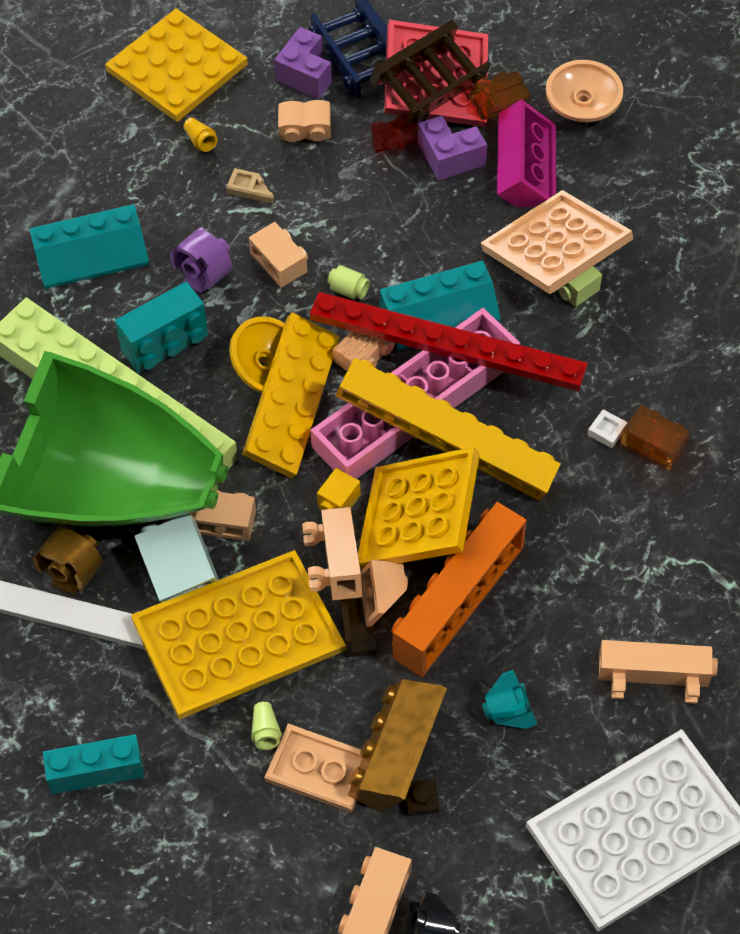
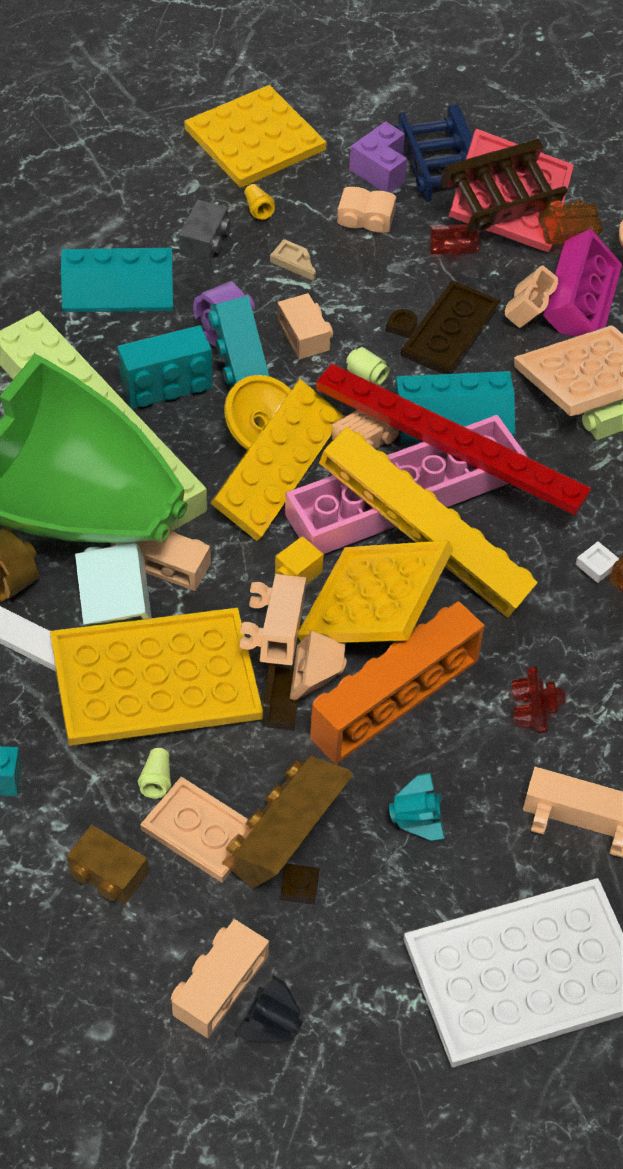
camera: 10 degrees right, 5 degrees down
(157, 177) = (204, 231): none -> flat silver brick
(224, 287) = (237, 339): none -> teal brick
(246, 823) = (107, 865): none -> pearl gold brick
(368, 229) = (402, 323): none -> dark brown tile
(414, 225) = (450, 328): none -> dark brown tile
(449, 152) = (503, 265): medium lavender brick -> none
(482, 178) = (531, 296): none -> light nougat brick
(580, 564) = (540, 698): none -> clear red hips

